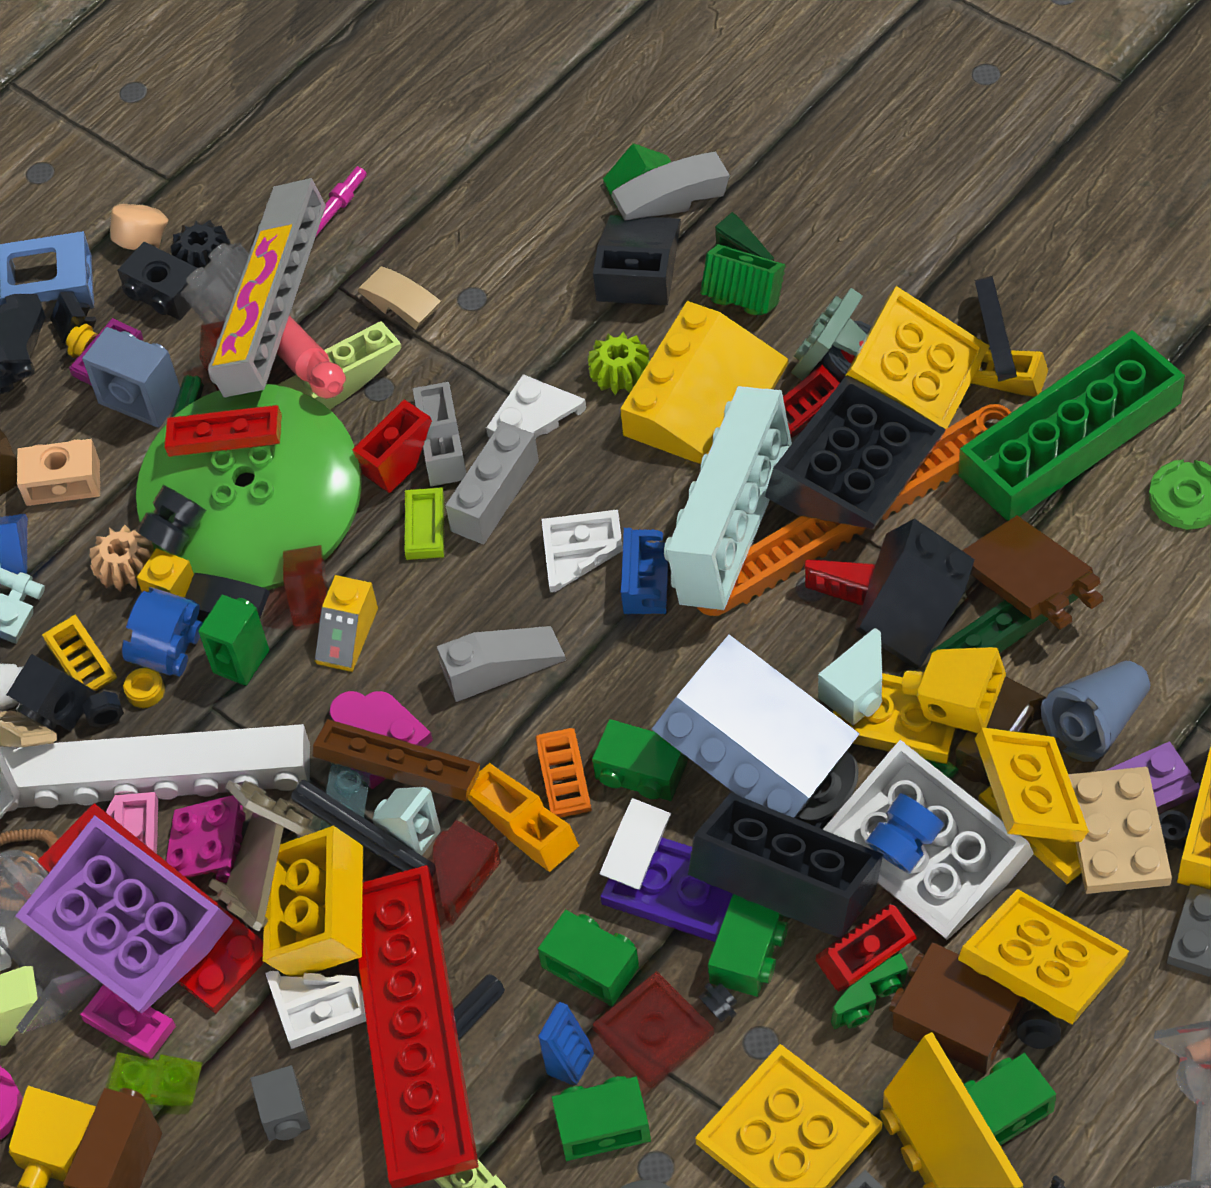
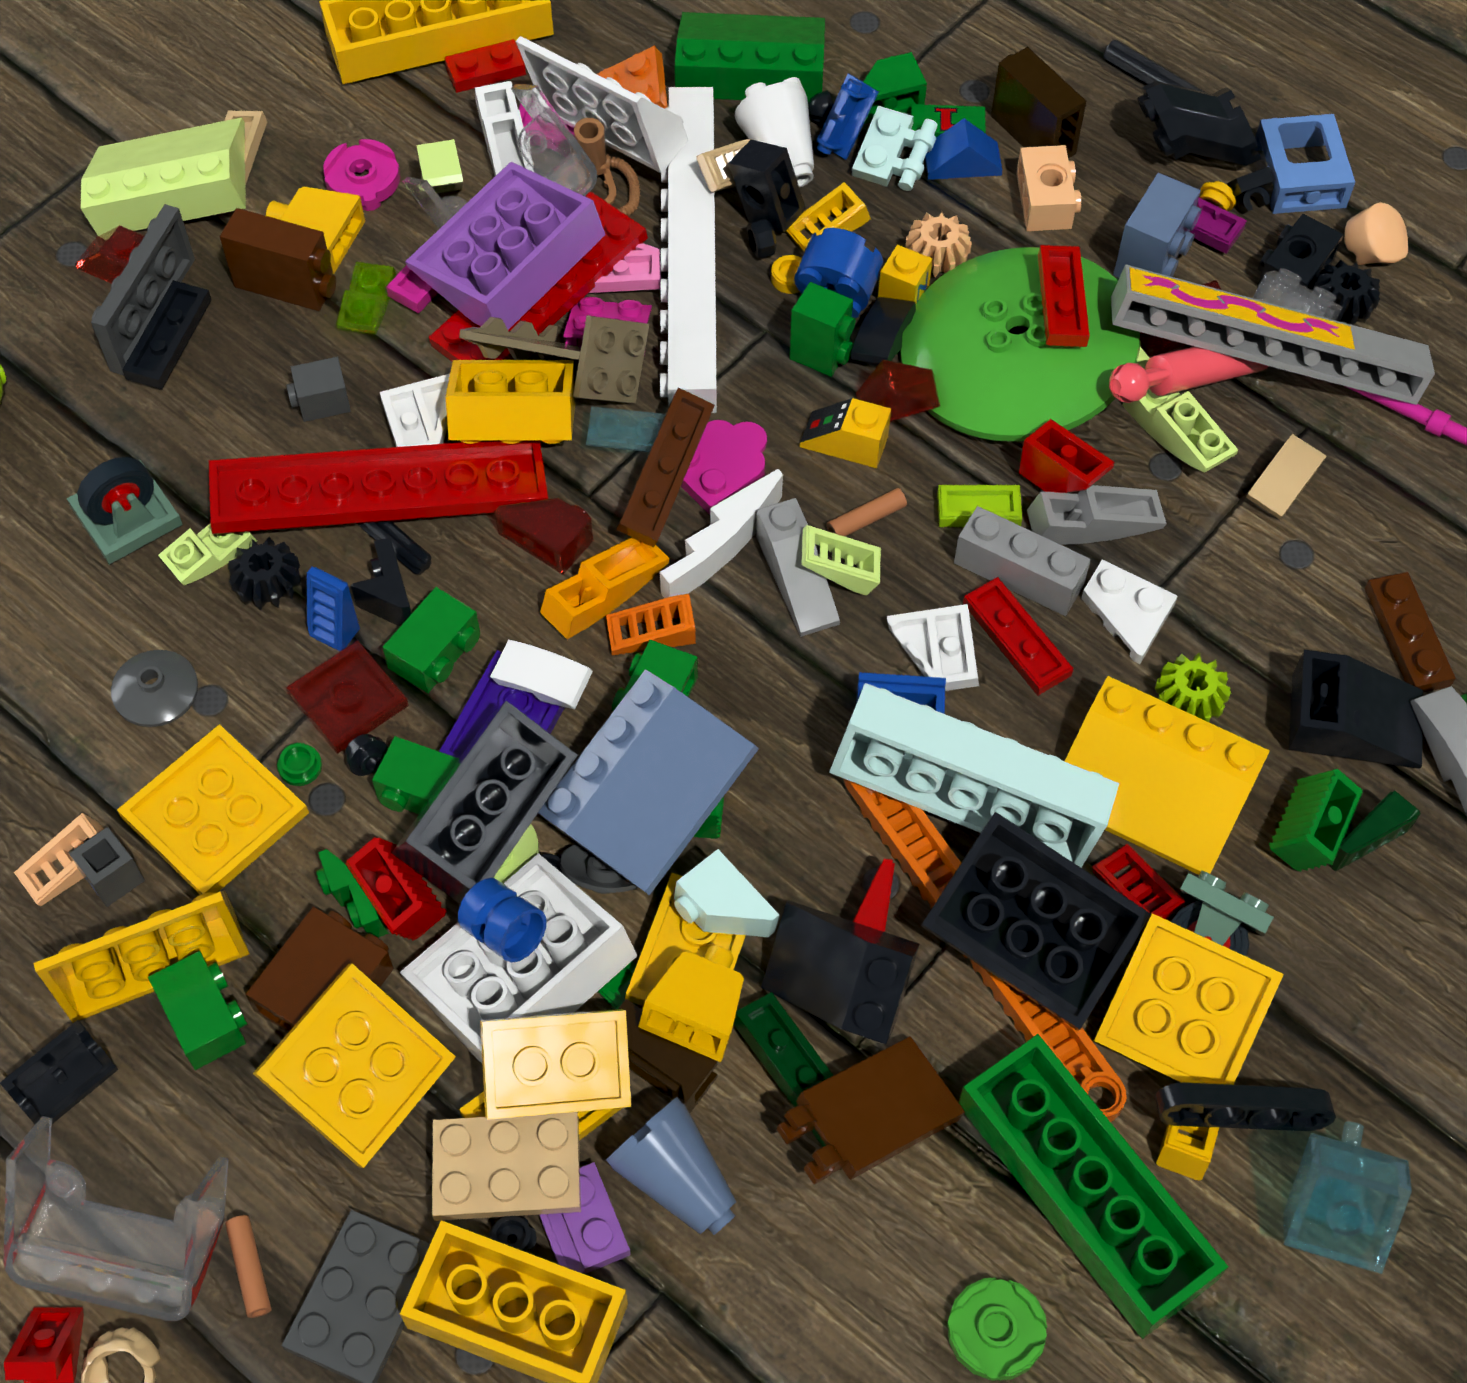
camera: 85 degrees right, 5 degrees up
(167, 534) = (960, 264): black wheel -> none
(358, 828) = (588, 433): black axle -> none
(409, 817) = (600, 481): light aqua slope -> none
(435, 609) = (868, 513): none -> nougat piece
(459, 712) = (729, 531): none -> white slope
(498, 611) = (863, 555): none -> yellowish green slope
(514, 1139) = (264, 573): none -> black gear
(530, 998) = (385, 593): none -> black slope
(552, 224) = (1409, 632): none -> reddish brown plate
(563, 491) = (1018, 636): none -> red tile
(601, 1117) = (257, 646): green brick -> none
(730, 1064) = (299, 764): none -> green plate
(1064, 264) = (1347, 1200): none -> clear light blue piece

